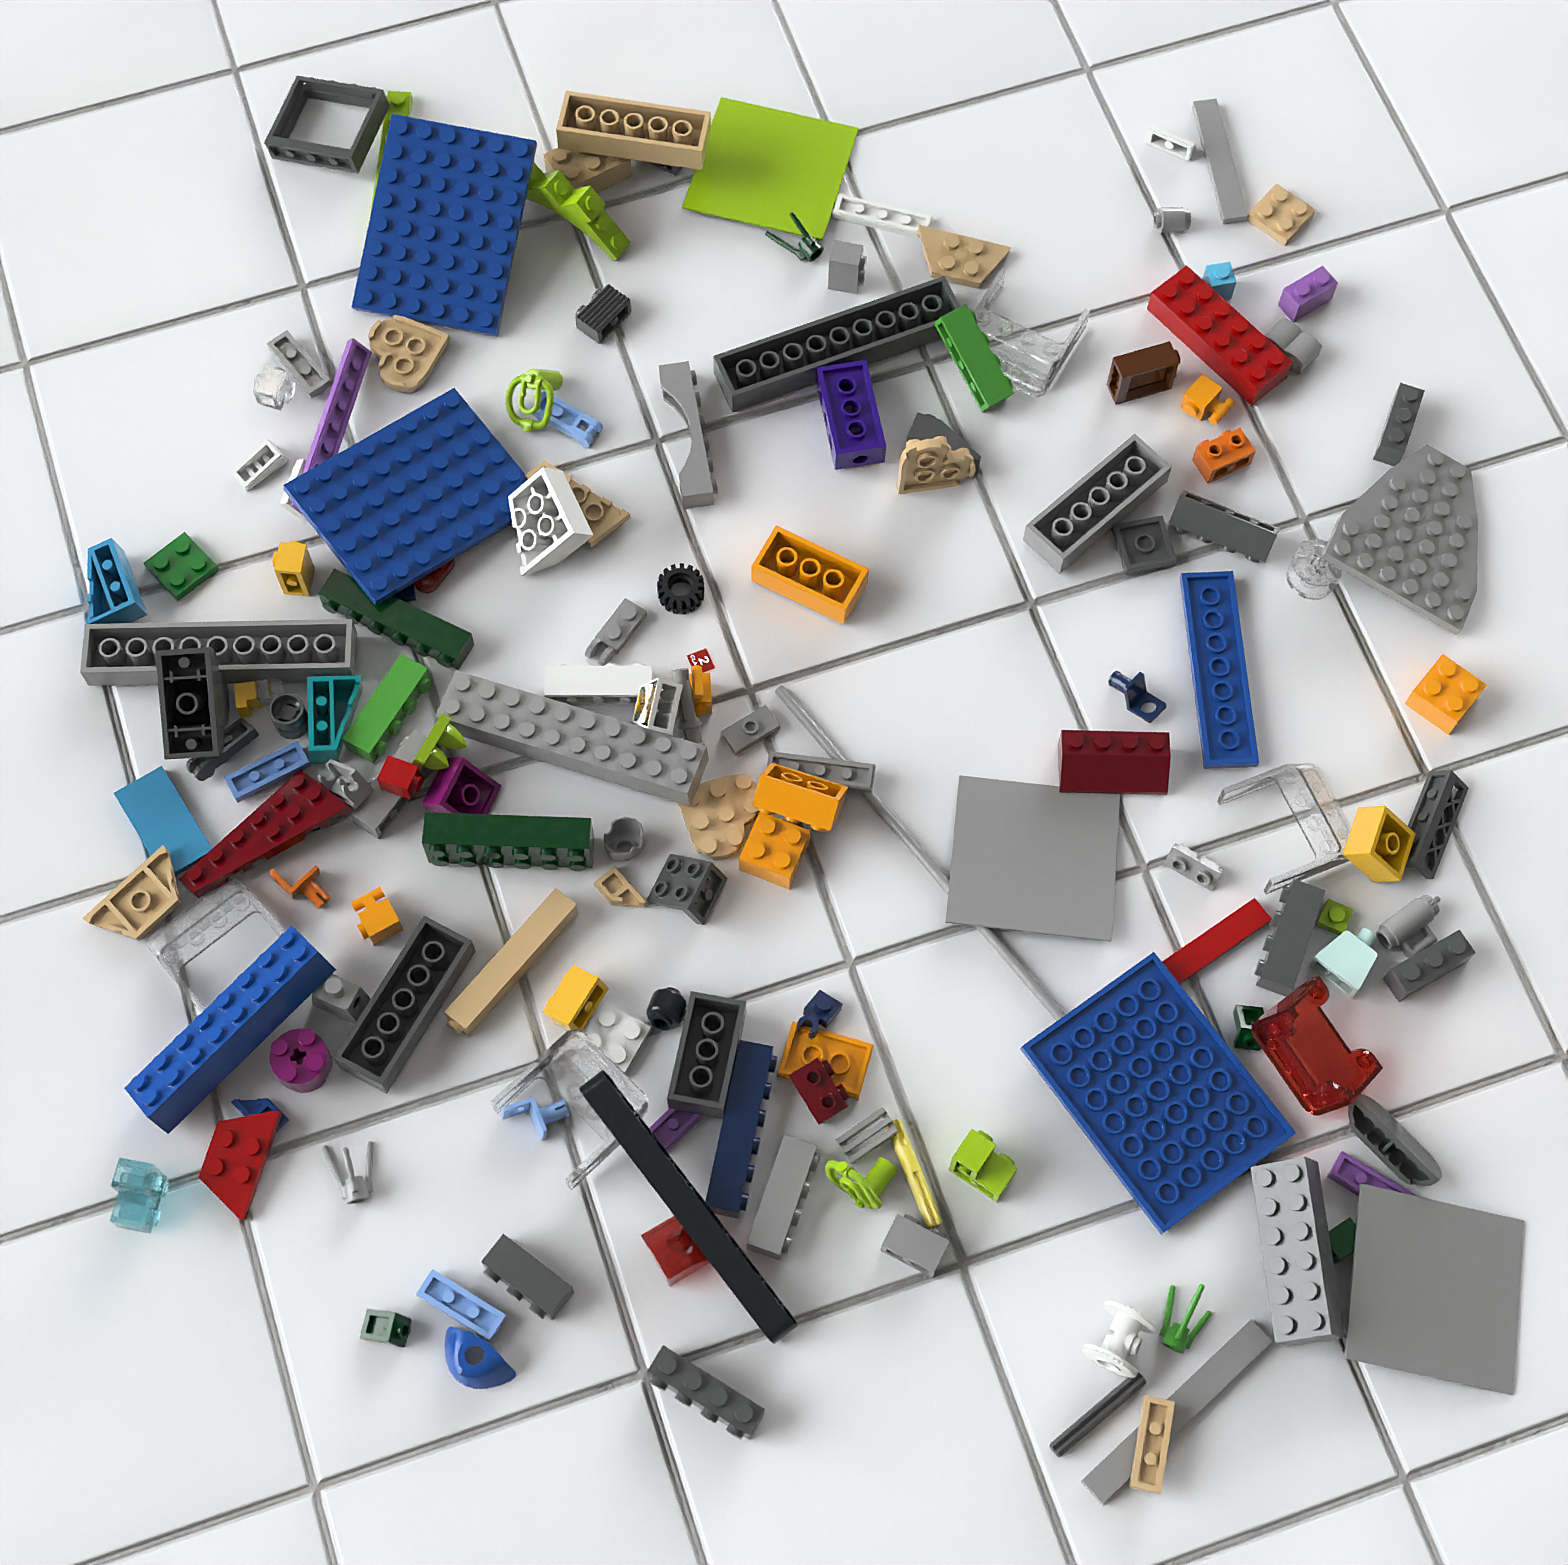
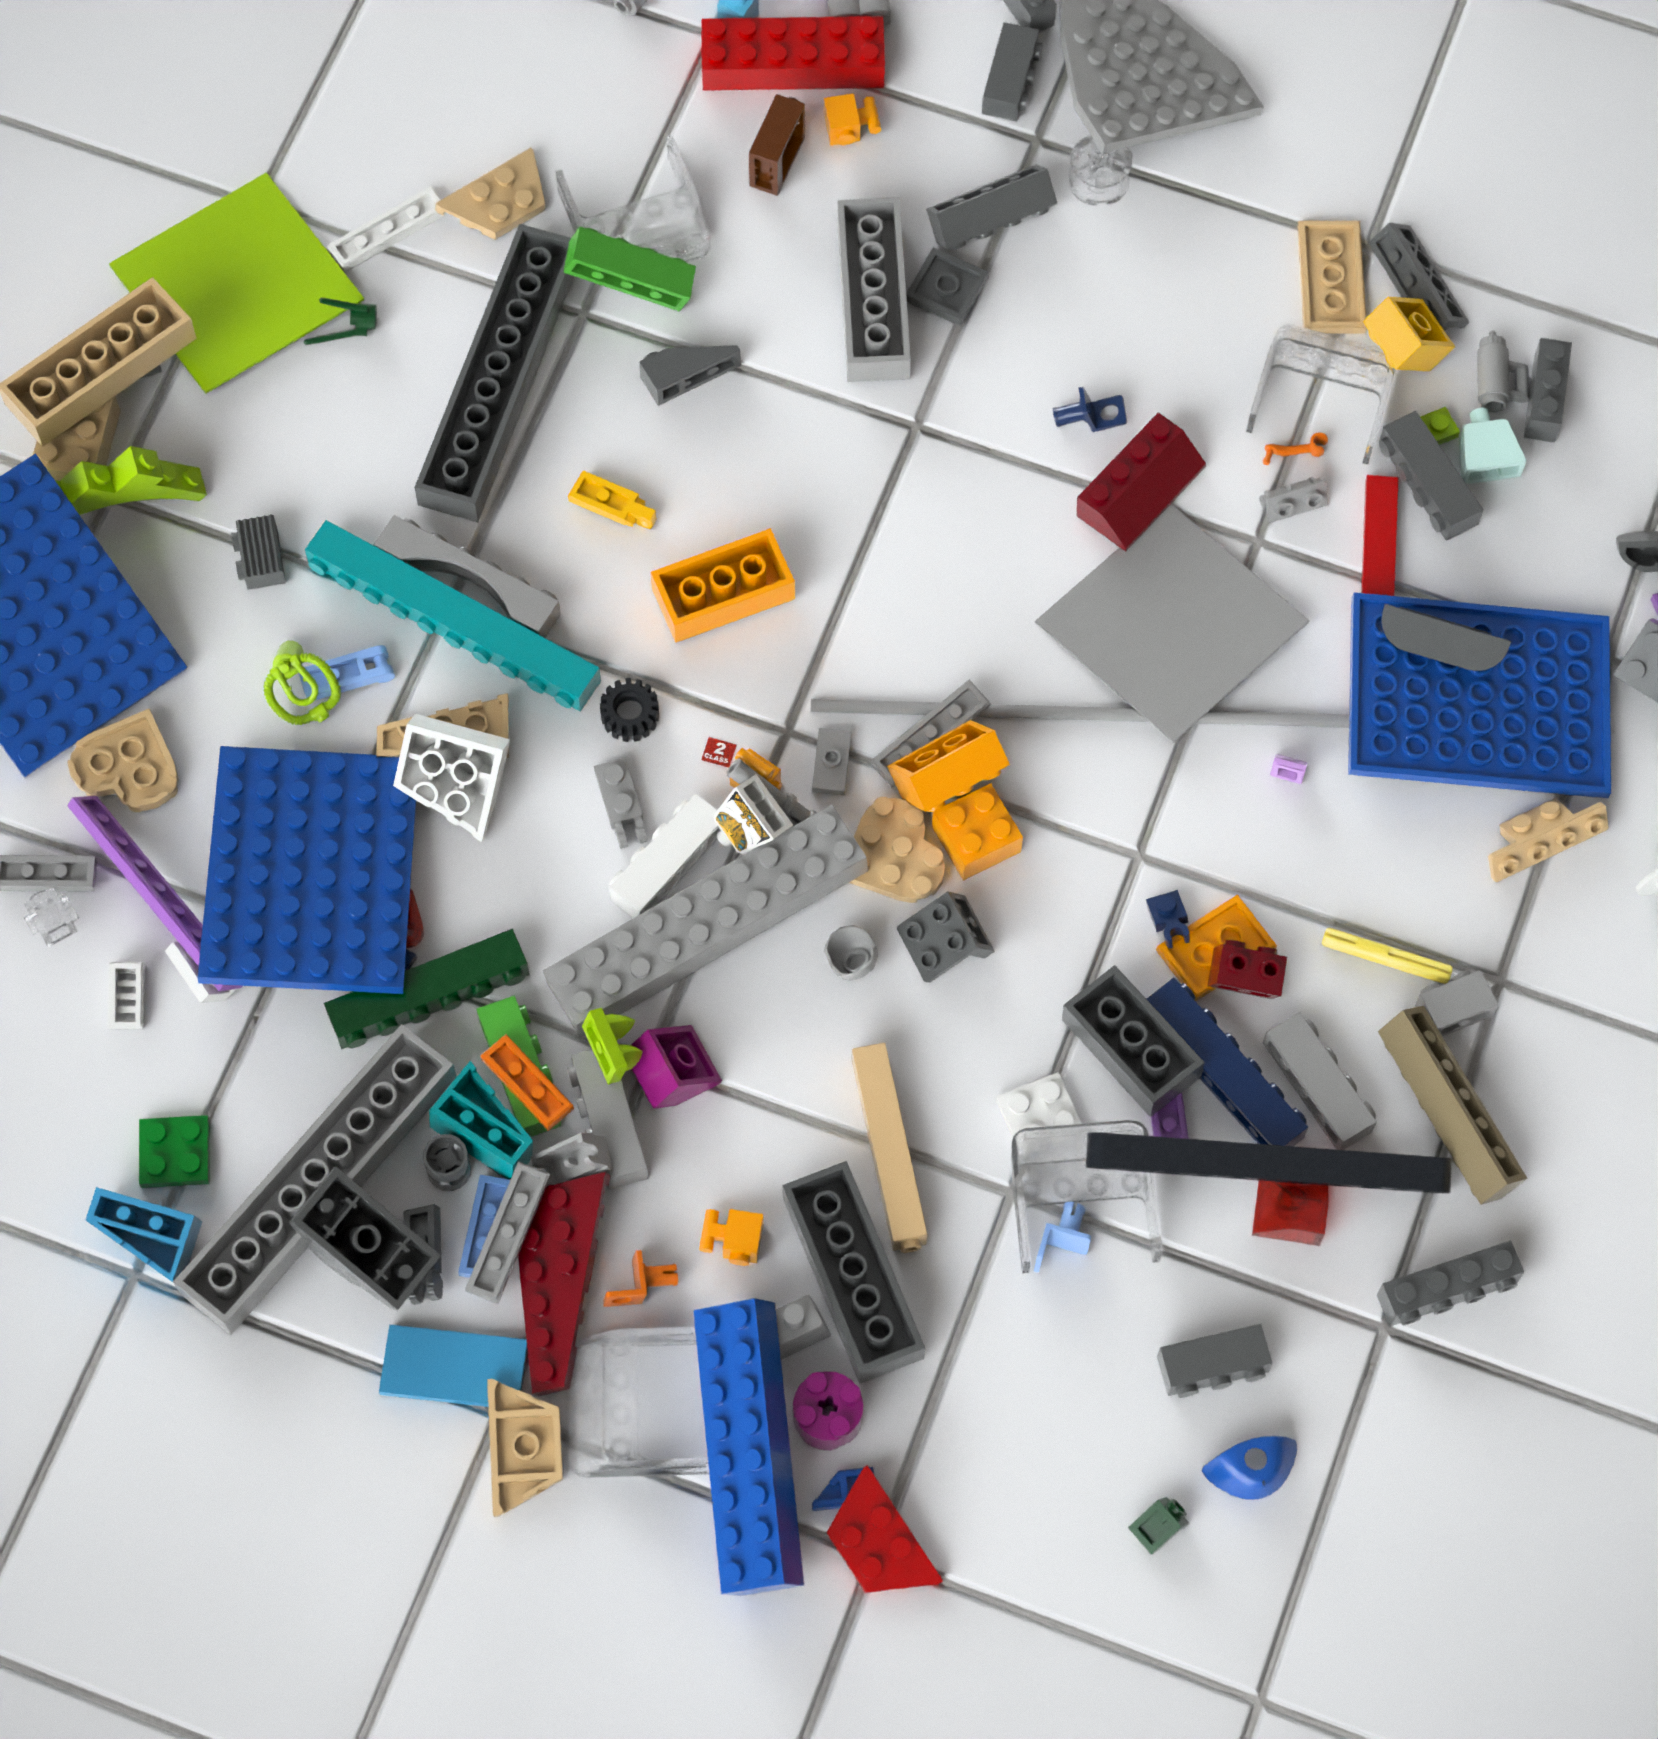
camera: 50 degrees left, 0 degrees up
(139, 1195) = (840, 1660): clear light blue brick -> none
(256, 694) = (393, 1175): leg -> none
(268, 783) = (508, 1232): none -> light grey tile
(294, 568) = (288, 1040): yellow brick -> none
(355, 1189) = (999, 1449): light grey plant -> none
(374, 718) = (527, 1082): none -> orange tile
(400, 777) = (618, 1101): red brick -> none
(461, 1305) = (1193, 1440): light blue plate -> none
(508, 841) = (766, 1055): dark green brick -> none
(575, 999) = (978, 1116): yellow brick -> none
(619, 890) = (894, 999): tan tile -> none
(655, 447) = (453, 616): none -> teal brick
(666, 1008) = (1053, 1044): black head -> none
(812, 471) = (611, 501): none -> yellow hinge
(835, 1296) = (1452, 1105): none -> dark tan brick
(846, 267) = (423, 300): light grey brick -> none
(847, 1149) = (1325, 936): light grey tile -> none
(850, 414) = (585, 420): dark purple brick -> none
(870, 1187) = (1370, 997): lime piece -> none
(932, 465) = (711, 393): tan plate -> none
(981, 1166) = (1430, 890): lime brick -> none
(995, 1008) = (1288, 768): none -> lavender slope
(1092, 1210) = (1543, 834): none -> tan bracket
(1168, 1031) = (1442, 639): none -> dark grey brick
(1219, 670) = (1124, 326): blue plate -> none
(1223, 455) = (917, 149): orange brick -> none
(1232, 840) = (1314, 450): none -> orange piece
(1244, 1019) = (1483, 573): dark green bracket -> none
(1311, 1051) = (1553, 547): clear red windscreen -> none
(1333, 465) = (1011, 72): none -> dark grey brick
(1382, 766) = (1332, 276): none -> tan tile
(1445, 694) = (1311, 168): light orange brick -> none

